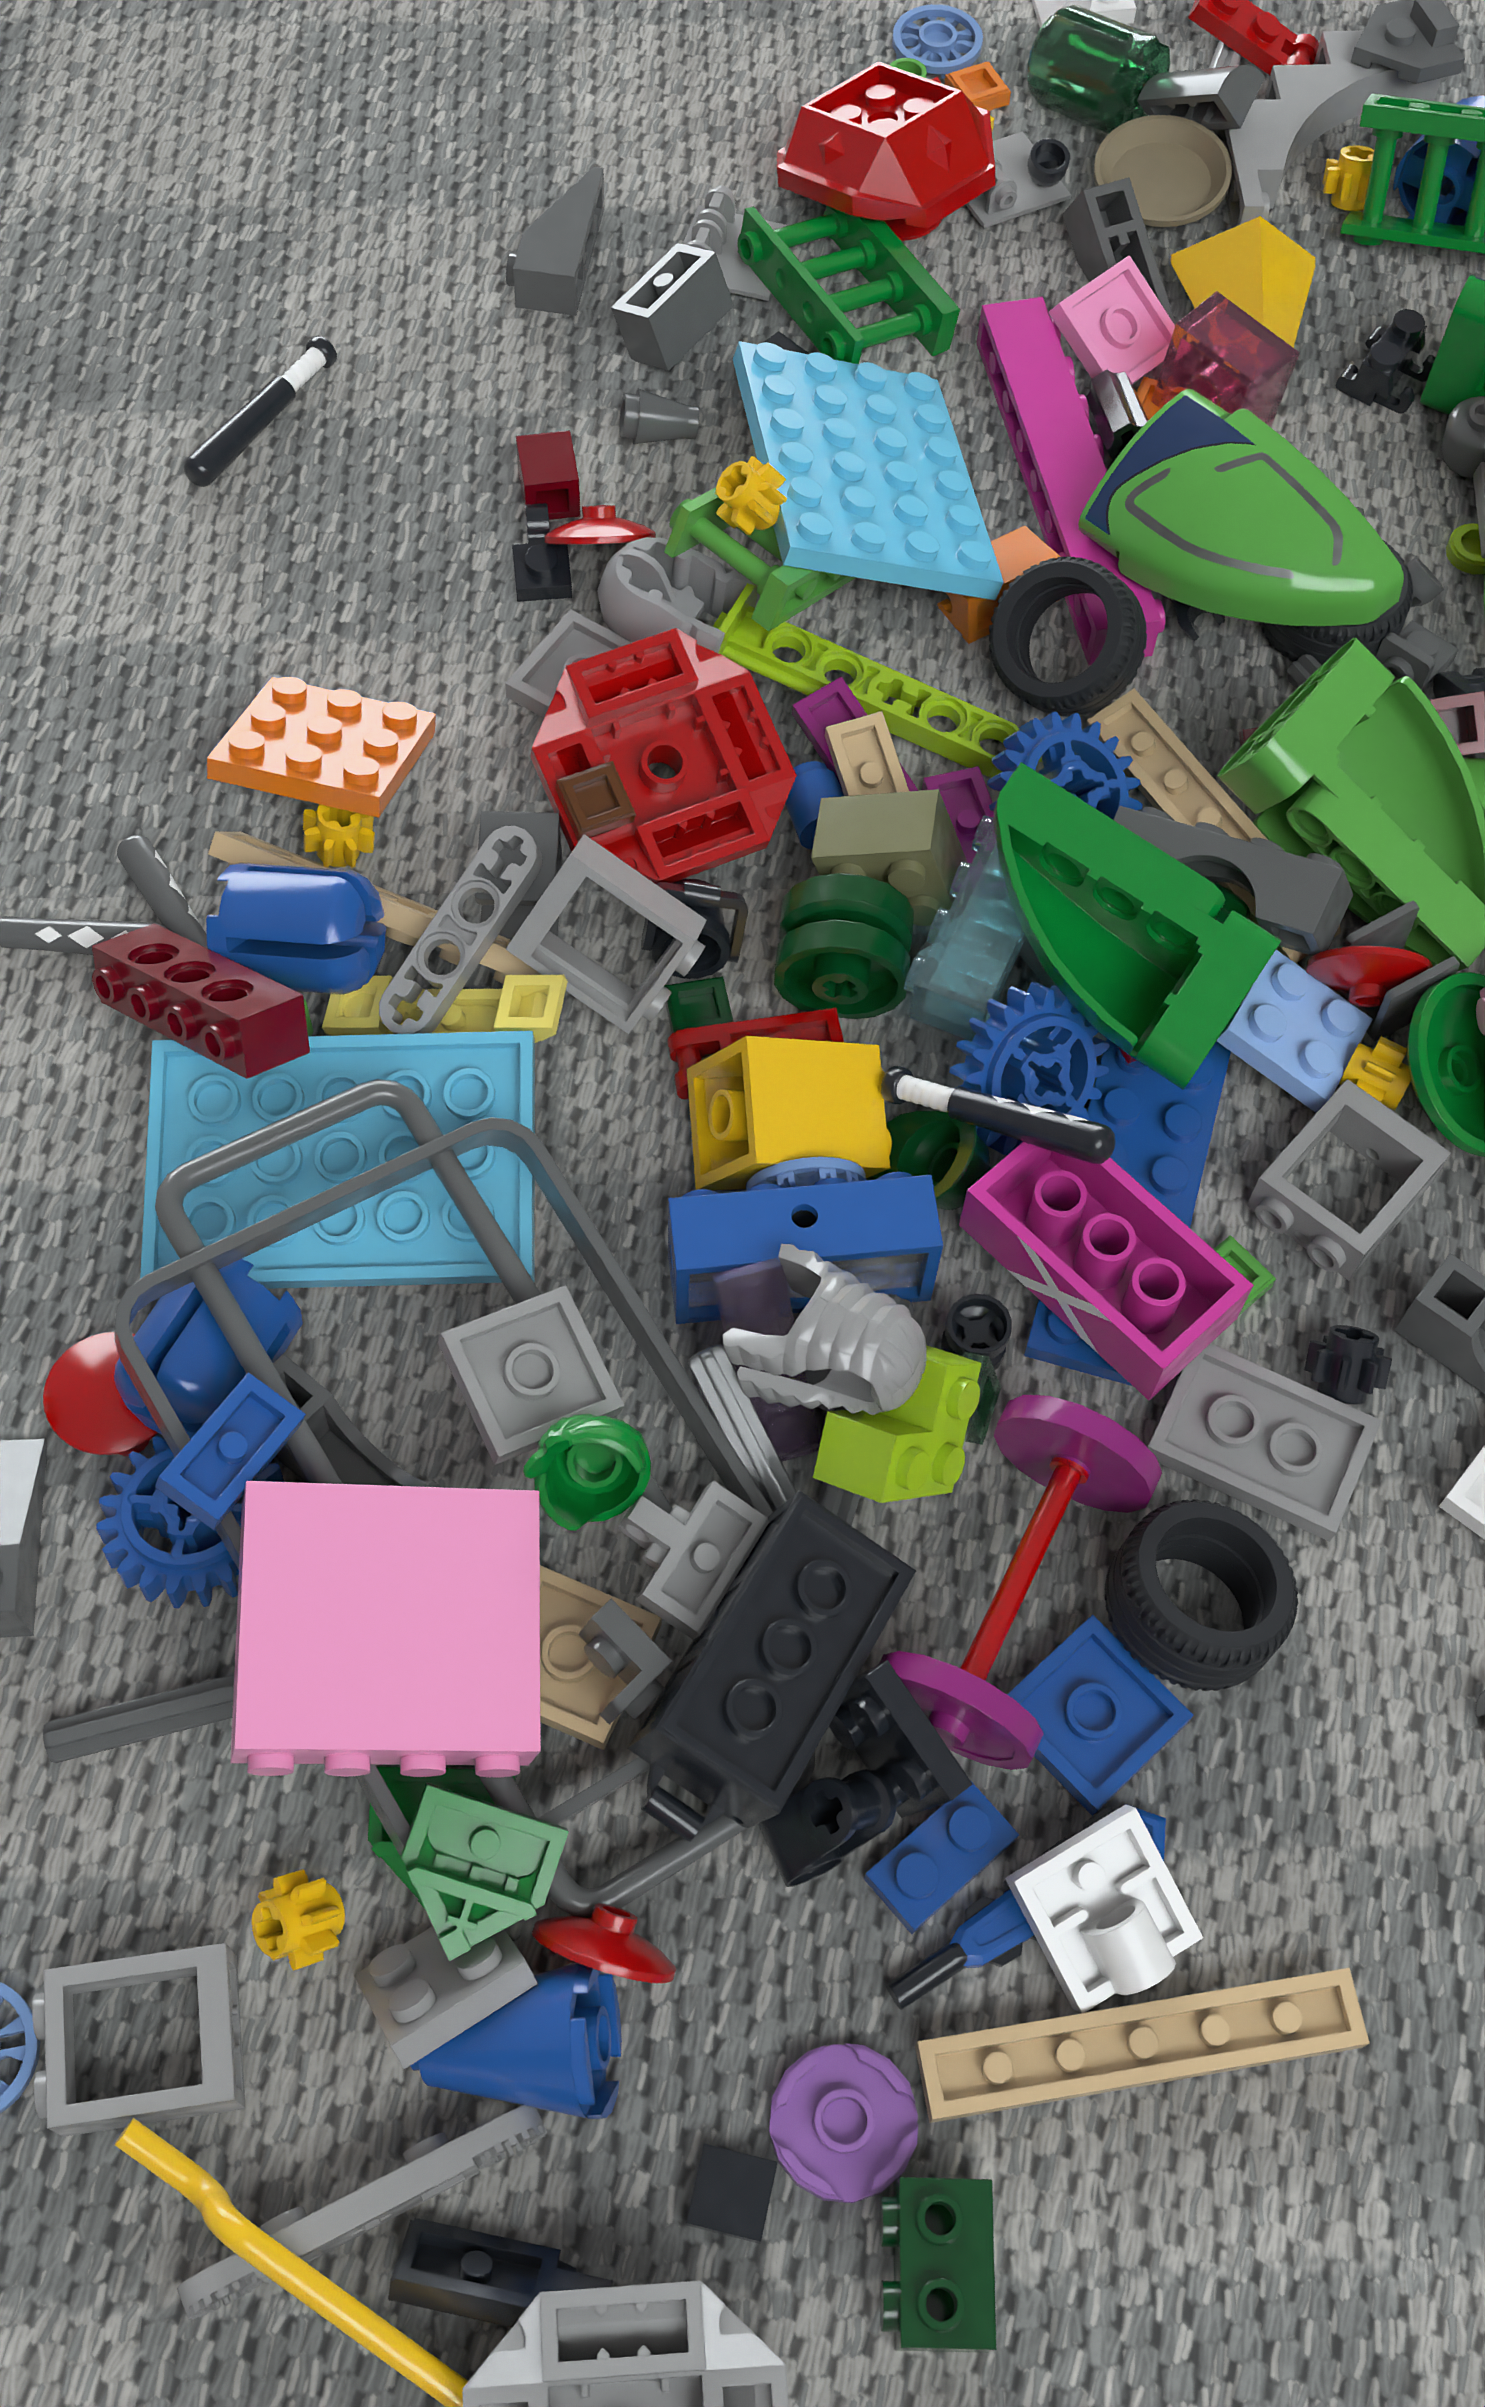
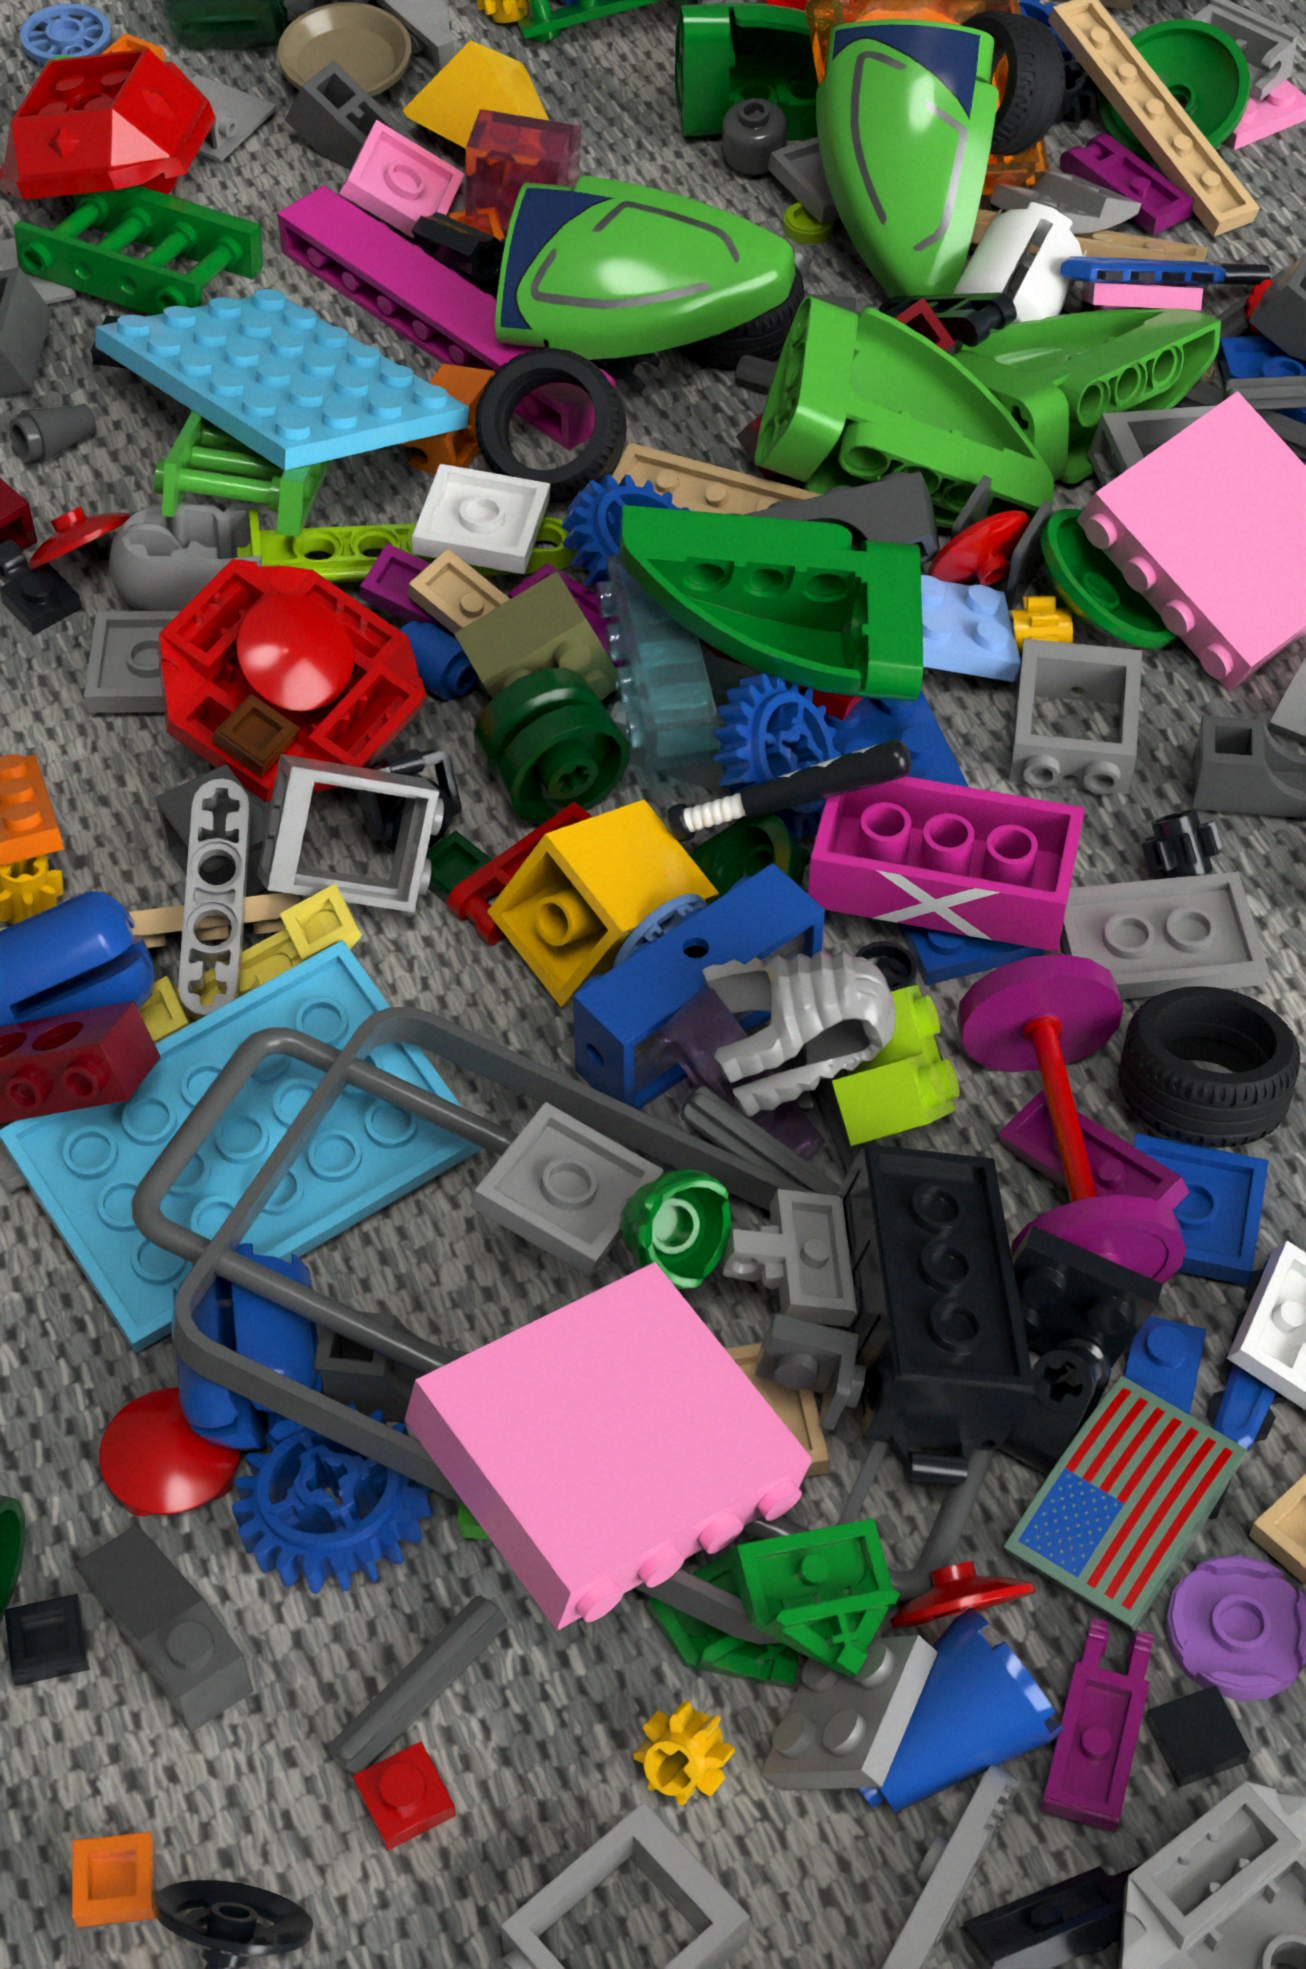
camera: 30 degrees left, 10 degrees down
(74, 1802) = (404, 1795): none -> red plate
(230, 1450) = (371, 1377): blue plate -> none
(648, 2132) = (1099, 1734): none -> magenta hinge
(673, 743) = (294, 653): none -> red dish
(750, 495) = (217, 428): yellow gear -> none
(820, 1948) = (1125, 1502): none -> slope
(943, 695) = (481, 518): none -> white plate
(1036, 1651) = (1113, 1162): none -> magenta plate
(1046, 156) = (238, 80): black hinge -> none
(1387, 361) = (639, 115): black piece -> none

